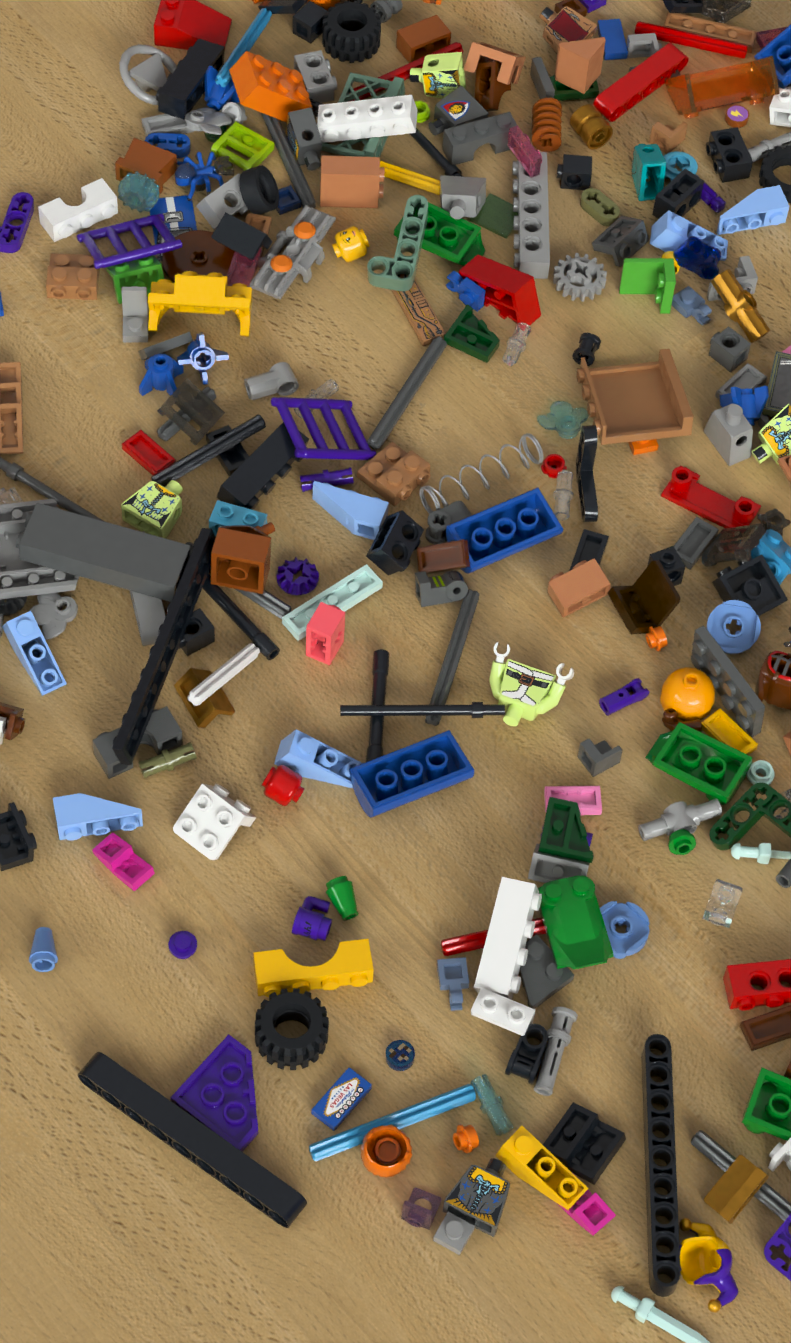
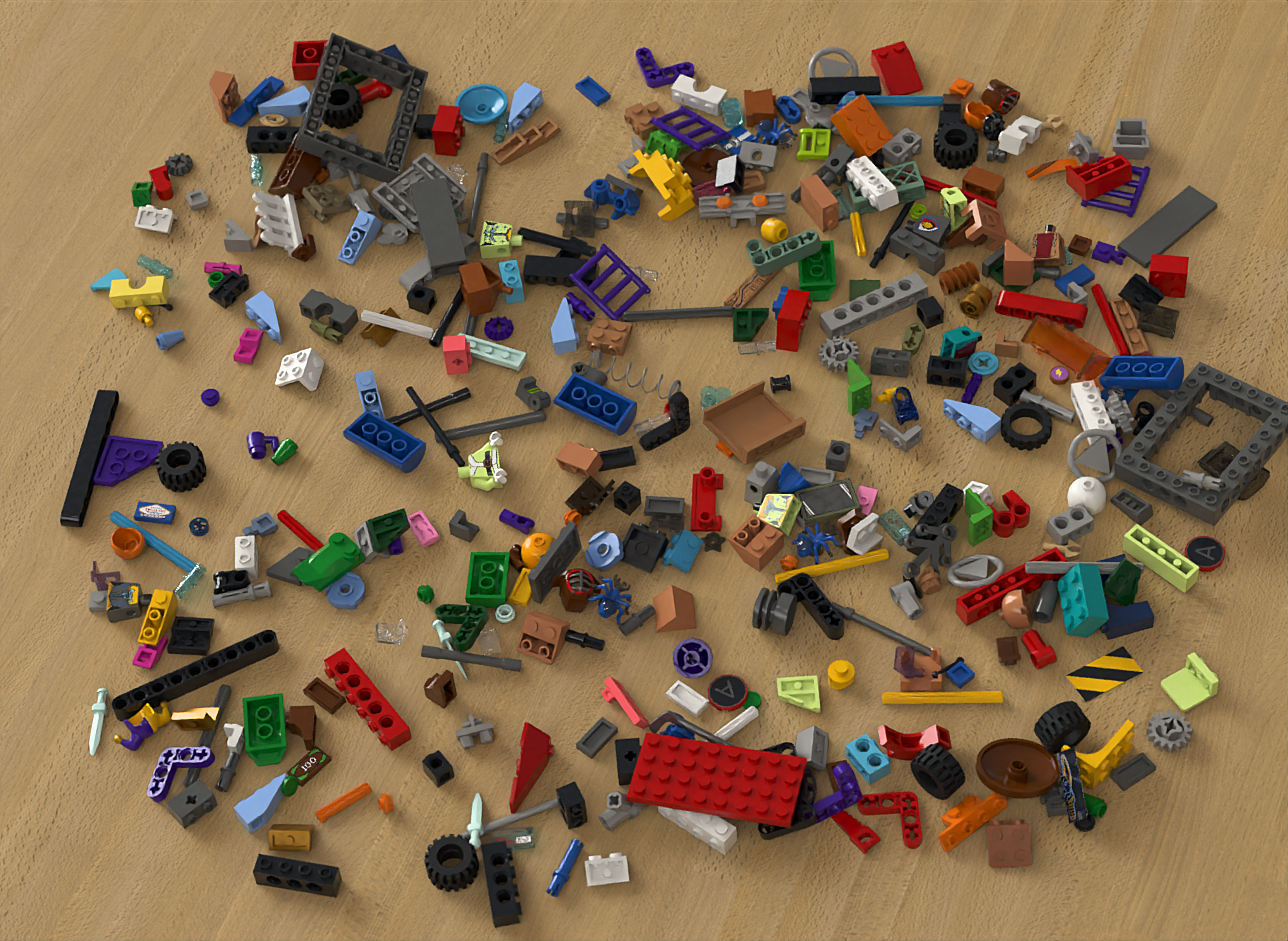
camera: 70 degrees right, 5 degrees down
(147, 452) = (541, 217): red tile -> none
(165, 648) = (383, 286): black plate -> none
(259, 190) = (784, 173): black tyre -> none
(278, 380) = (637, 248): light grey piece -> none
(283, 785) = (341, 388): red head -> none
(288, 200) = (789, 184): dark blue tile -> none
(348, 966) = (240, 473): yellow arch -> none
(395, 543) = (549, 352): black brick -> none
(443, 556) = (554, 384): reddish brown tile -> none
(462, 195) = (854, 263): light grey torso -> none
(466, 1138) = (160, 578): orange plate -> none
(507, 937) = (295, 533): white brick -> none
(524, 151) = (909, 273): clear pink plate -> none
(674, 230) = (916, 383): light blue slope -> none
(678, 817) = (442, 586): light grey pin -> none
(740, 305) = (869, 452): pearl gold piece -> none

